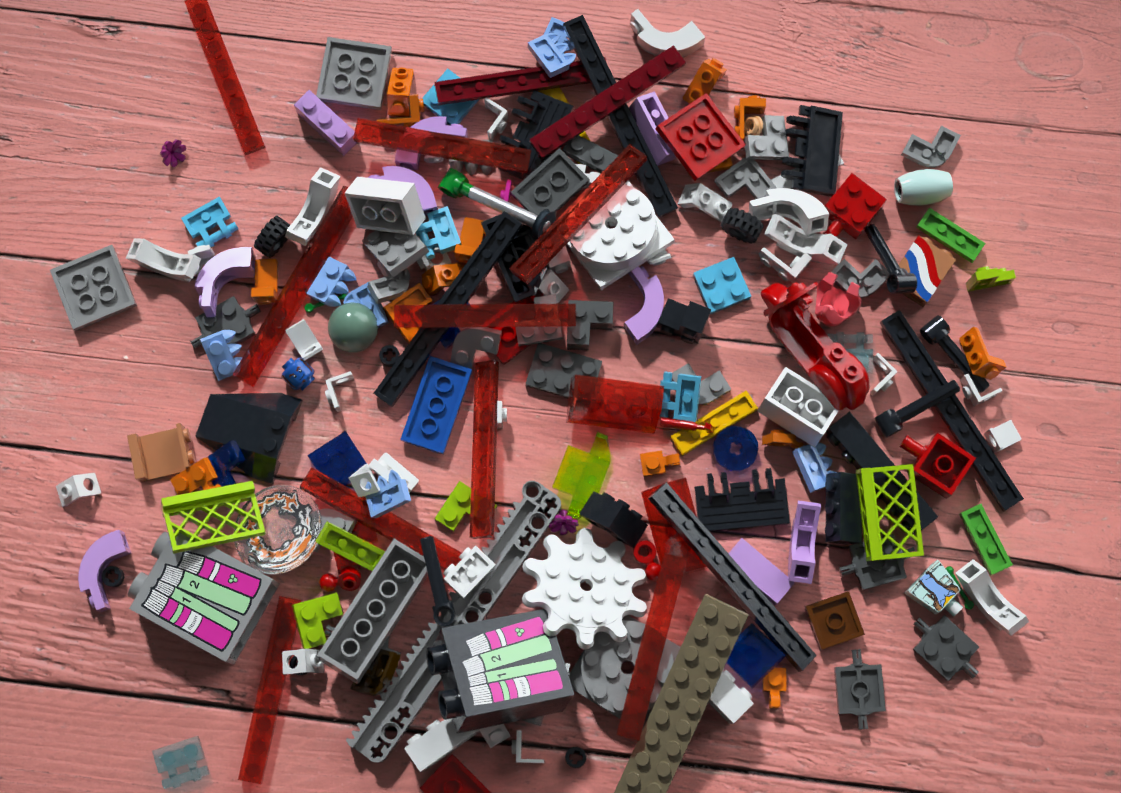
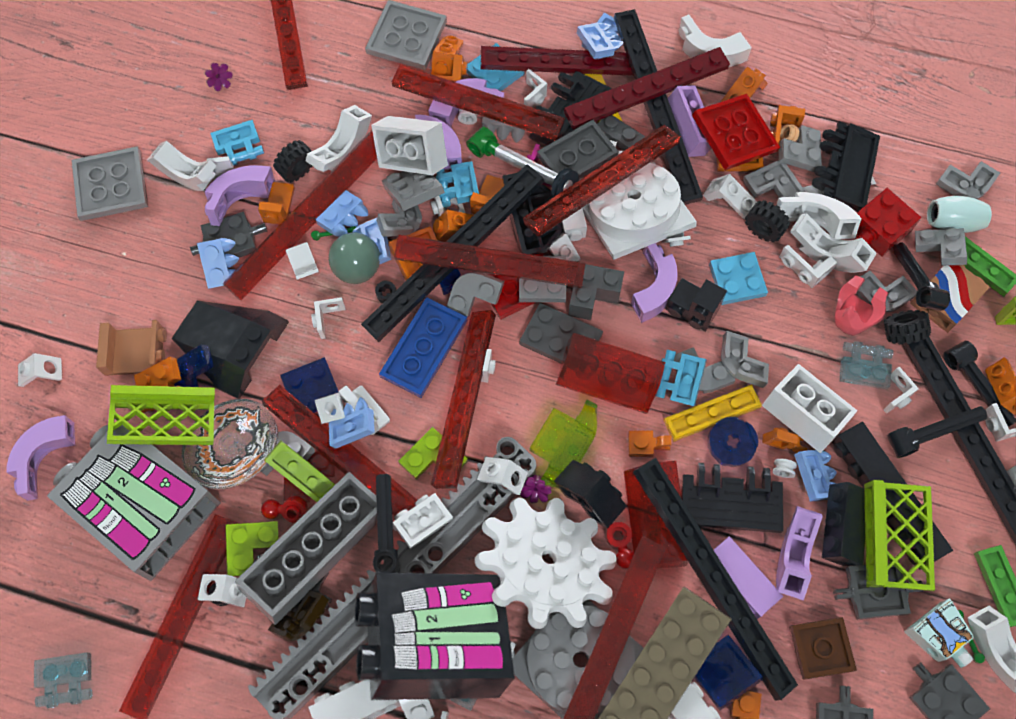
camera: 10 degrees right, 10 degrees down
(108, 582) = (42, 459): black bush -> none
(297, 373) = (288, 293): blue head -> none
(325, 122) = (369, 70): lavender brick -> none
(530, 517) = (500, 472): none -> white bracket
(686, 425) = (683, 408): red piece -> none
(732, 373) = (737, 363): none -> light grey plate
(784, 465) = (784, 468): none -> white bush
(827, 363) = (845, 368): red piece -> none
(882, 312) = (907, 327): none -> black tyre
(914, 219) = (948, 241): none -> light grey plate
(939, 464) = (958, 493): red brick -> none

